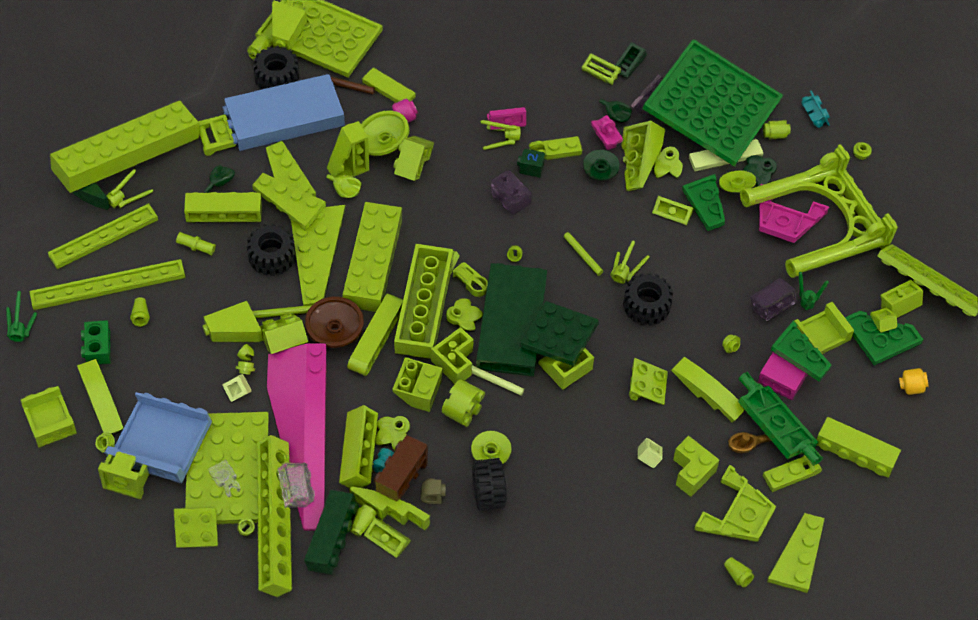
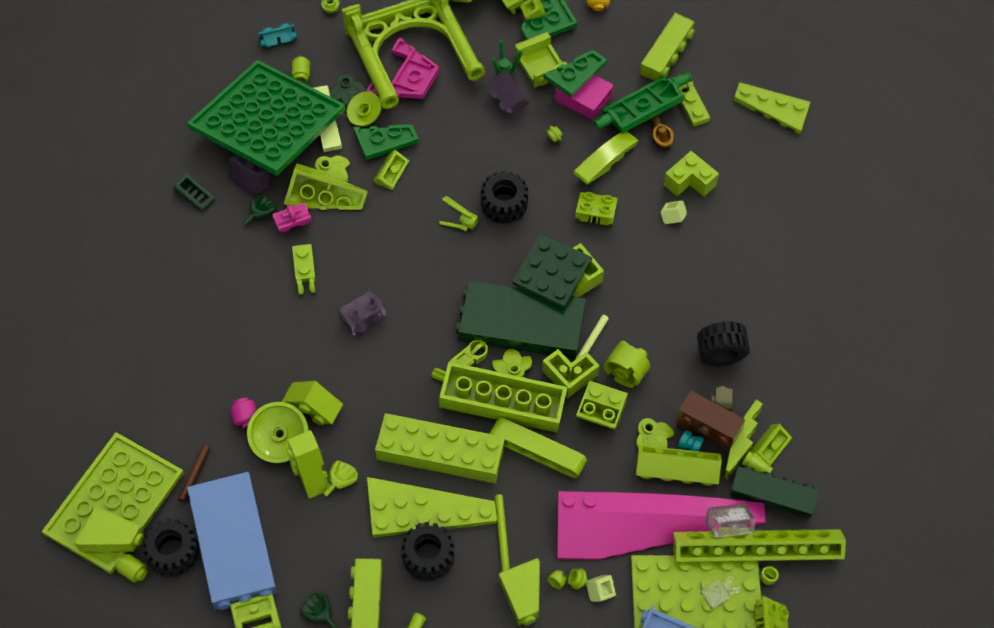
camera: 85 degrees left, 5 degrees up
(283, 333) = (535, 538): lime slope -> none
(286, 169) = (326, 535): lime wing -> none
(294, 202) = (361, 531): lime wing -> none
(330, 314) = (530, 474): reddish brown dish -> none
(387, 86) = (203, 430): lime tile -> none
(491, 441) = (674, 338): lime dish -> none
(510, 254) = (439, 314): lime hinge -> none
(512, 133) = (282, 309): lime plant -> none
(513, 116) = (261, 312): dark pink panel -> none
(531, 162) = (325, 290): dark green brick -> none
(585, 256) = (440, 253): lime bar -> none
(601, 159) = (333, 220): dark green dish -> none
(613, 75) = (192, 230): lime tile -> none
(740, 573) = (796, 152): lime cone -> none
(747, 514) = (737, 140): lime wing -> none

